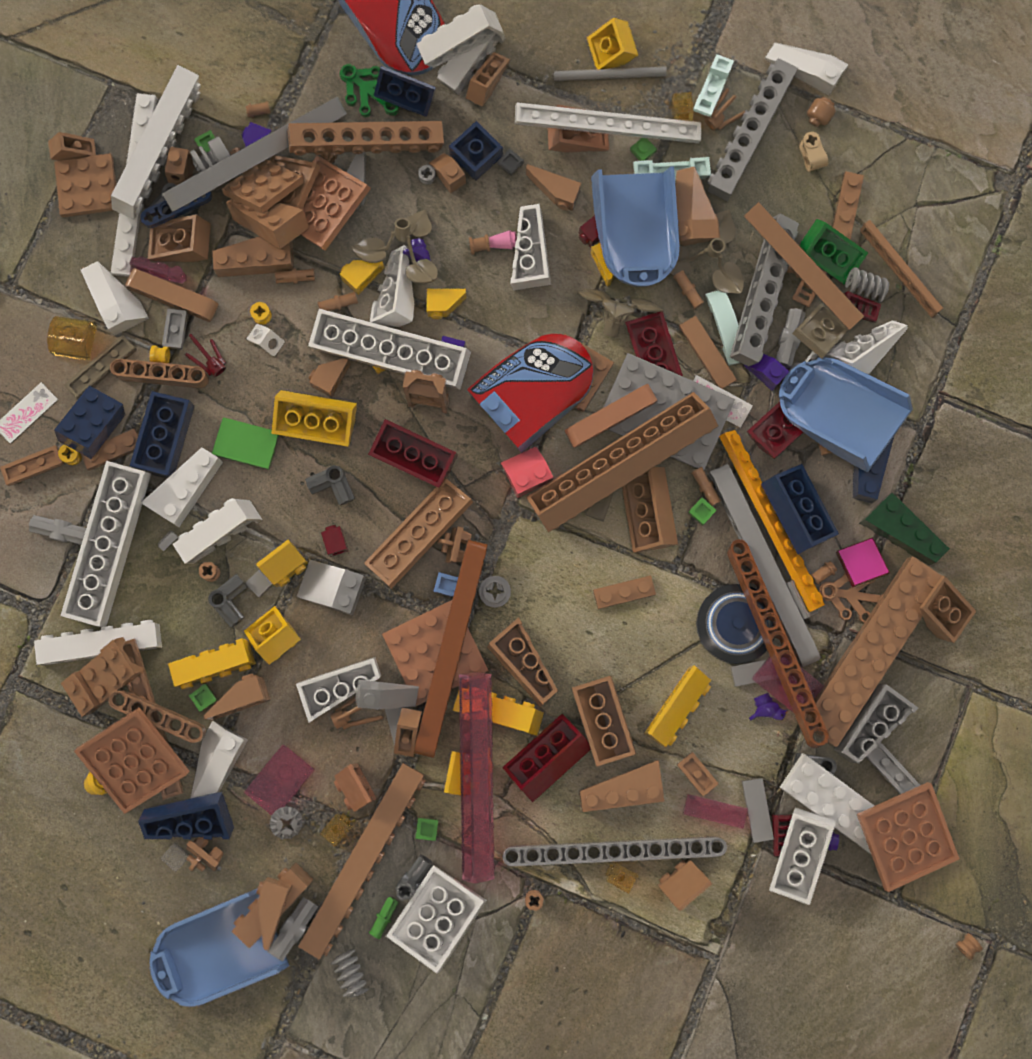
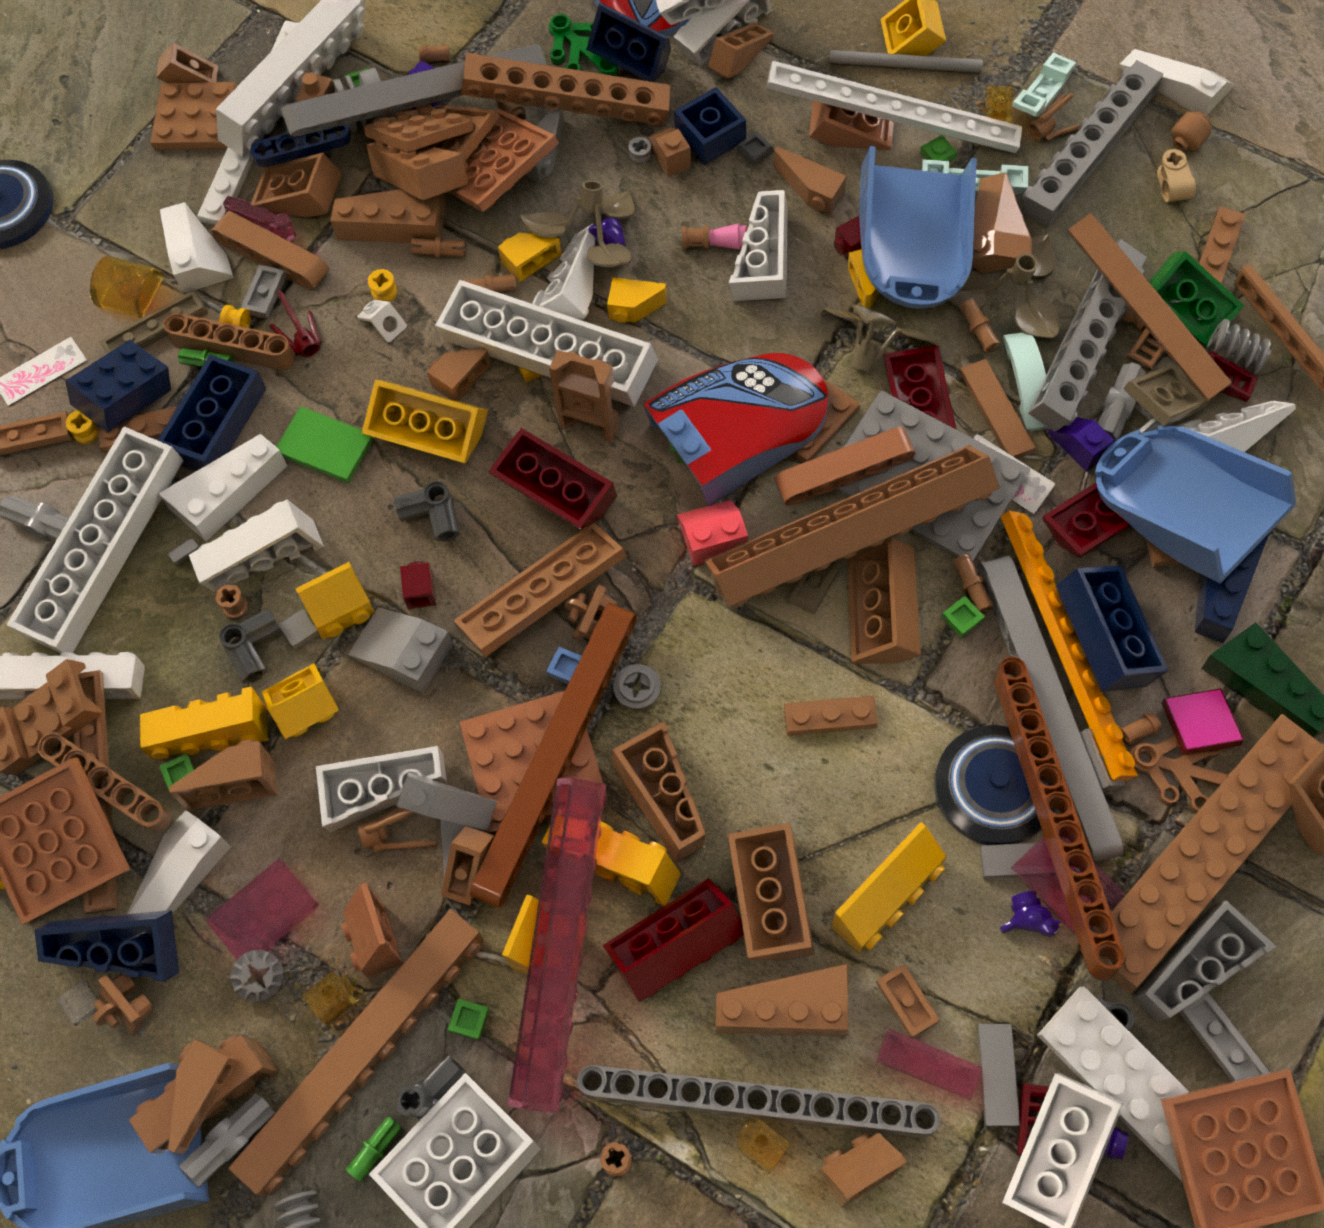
camera: 15 degrees right, 15 degrees down
(144, 388) = (198, 357): none -> bright green axle

